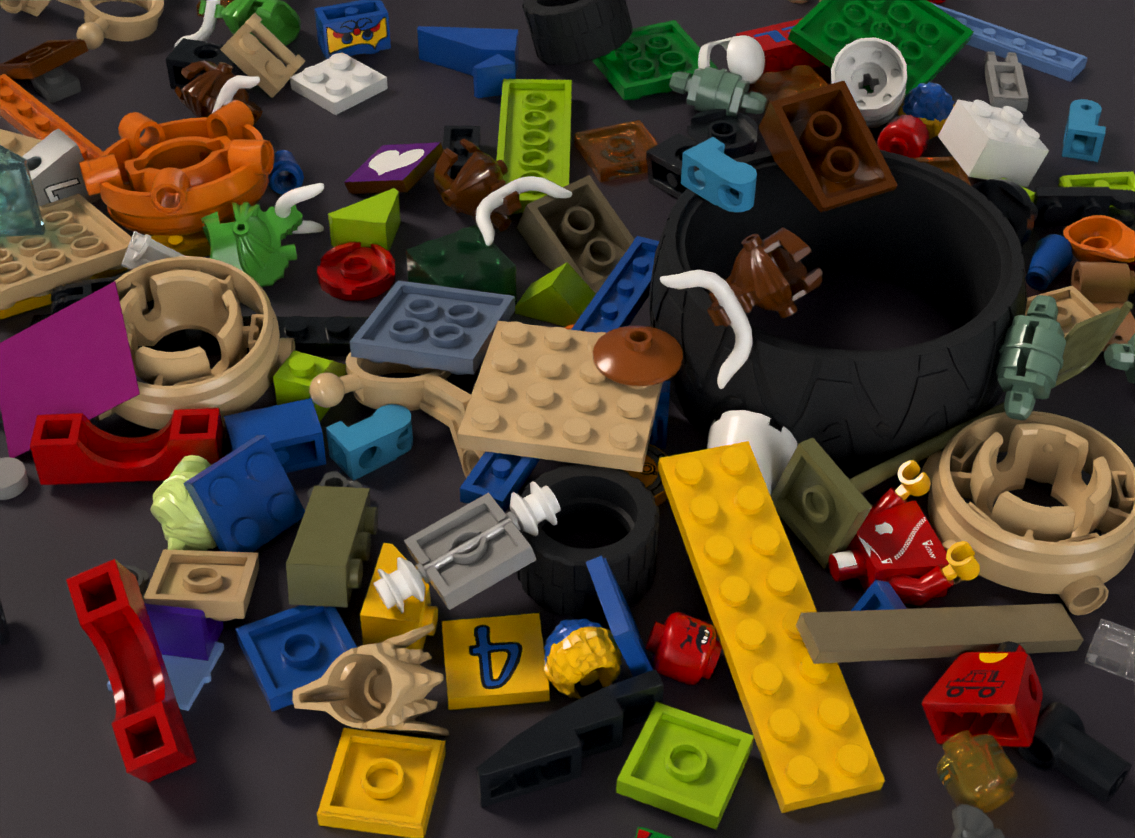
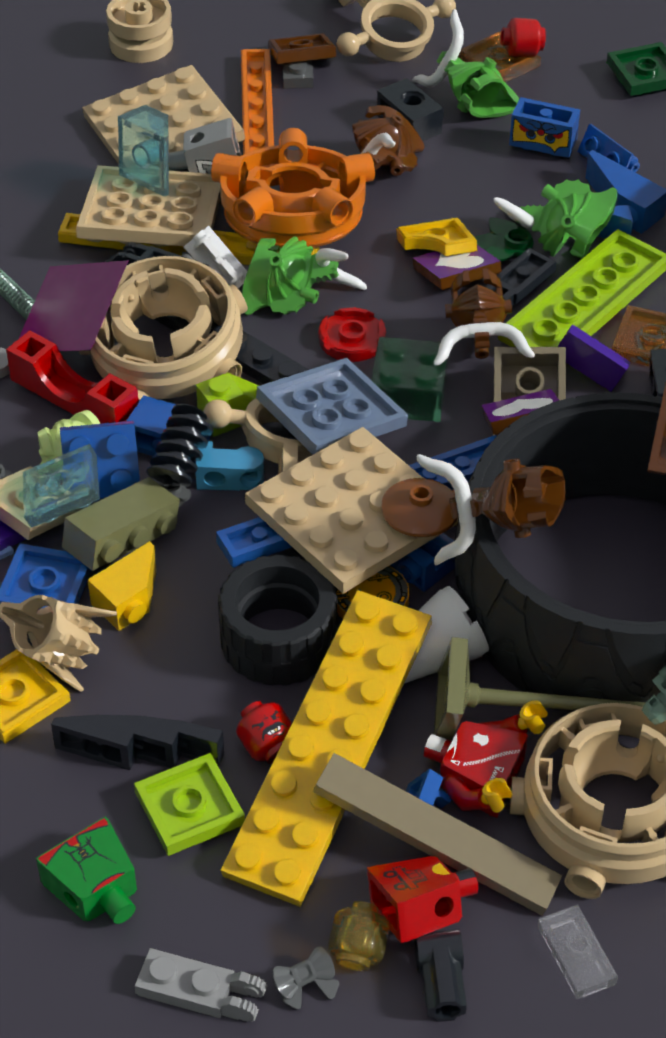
camera: 40 degrees right, 5 degrees up
(242, 539) = (60, 486): none -> clear light blue plate
(257, 60) = (444, 124): tan plate -> none
(285, 173) = (377, 228): blue cone -> none
(327, 434) = (180, 445): none -> black piece
(338, 83) = (498, 170): white plate -> none
(351, 152) = (443, 236): none -> yellow tile
(367, 221) = (394, 300): lime slope -> none
(405, 24) = (603, 144): none -> blue hinge
(409, 130) = (505, 239): none -> dark green plate
(459, 81) = (569, 213): none -> bright green helmet
(469, 549) = (175, 576): light grey plate -> none
(494, 661) = (152, 663): yellow tile -> none
(556, 297) = (461, 429): lime slope -> none
(581, 653) = (194, 689): yellow piece -> none
(611, 243) = (505, 412): none -> tile
(616, 181) = (593, 358): none -> dark purple panel
(619, 617) = (232, 685): blue tile -> none
(720, 177) = (591, 400): dark azure leg -> none

